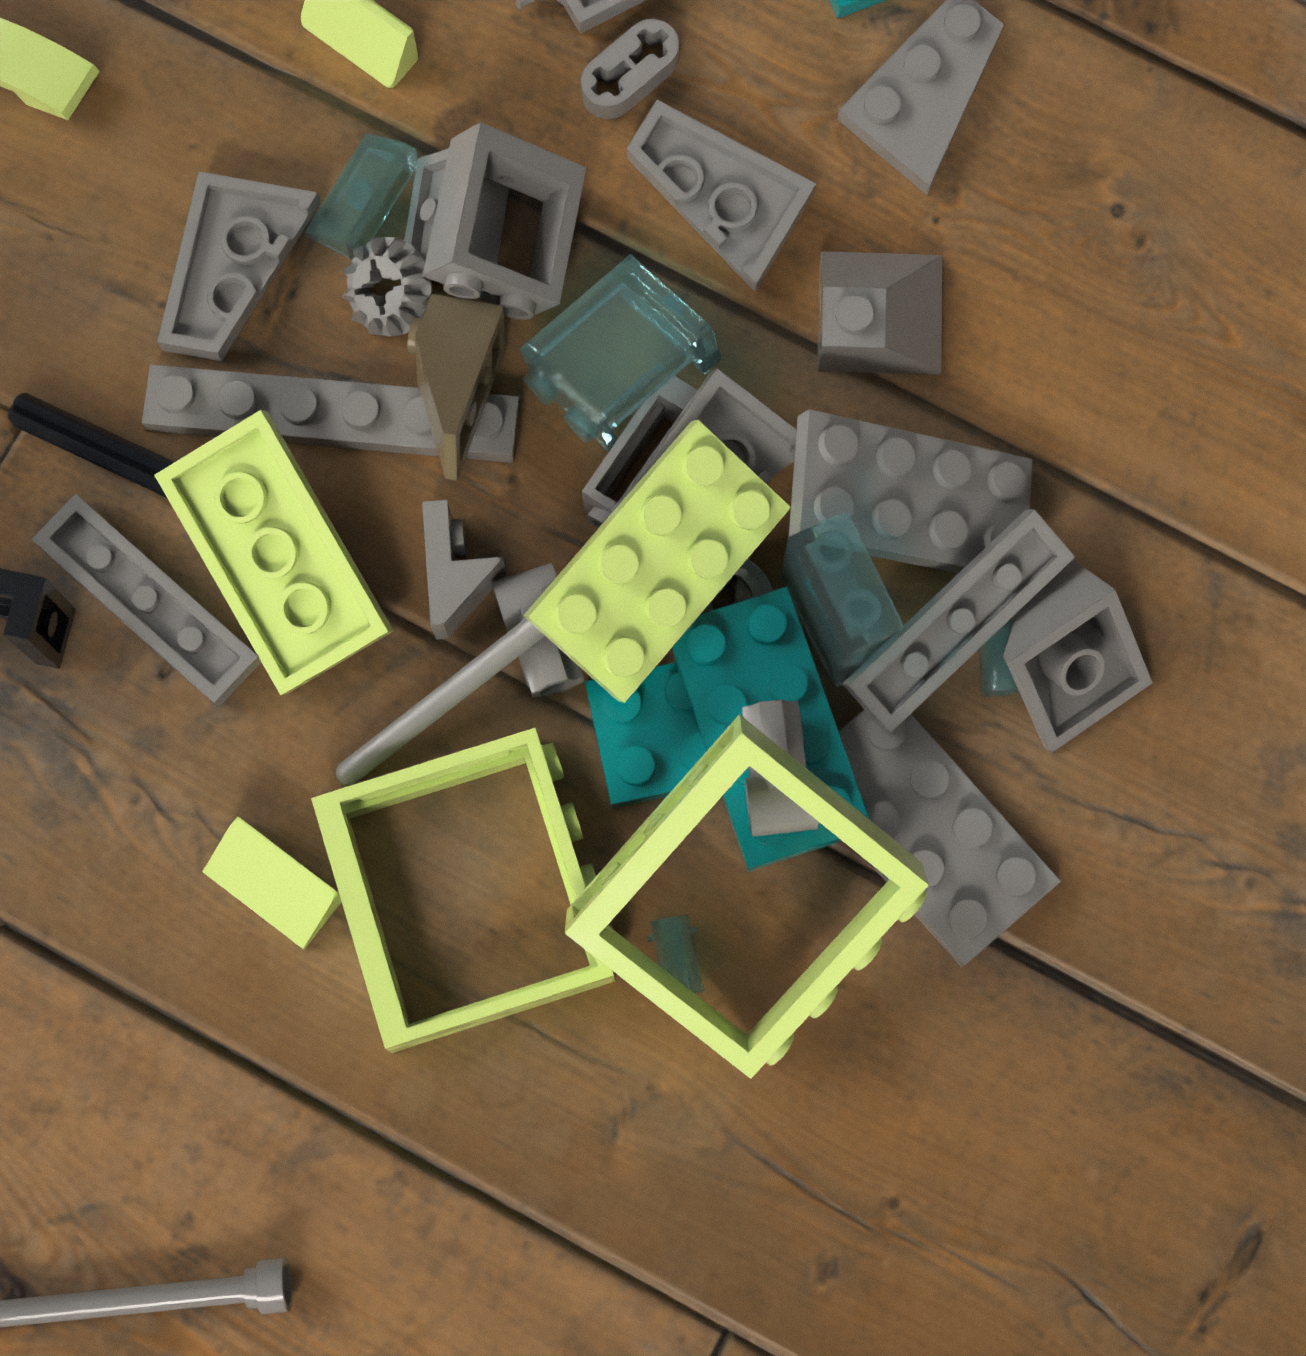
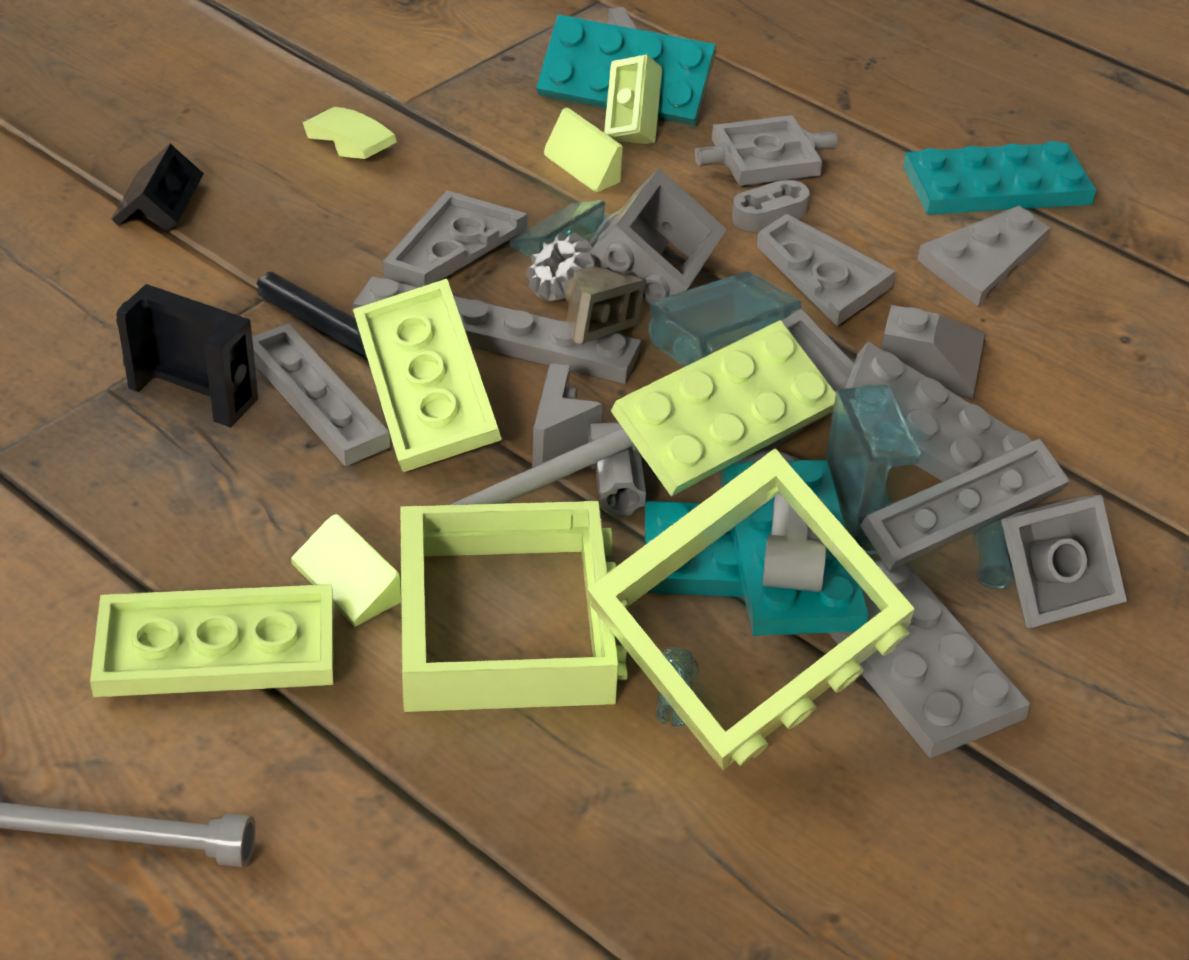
camera: 10 degrees right, 35 degrees down
(160, 1026) = (213, 640): none -> yellowish green plate

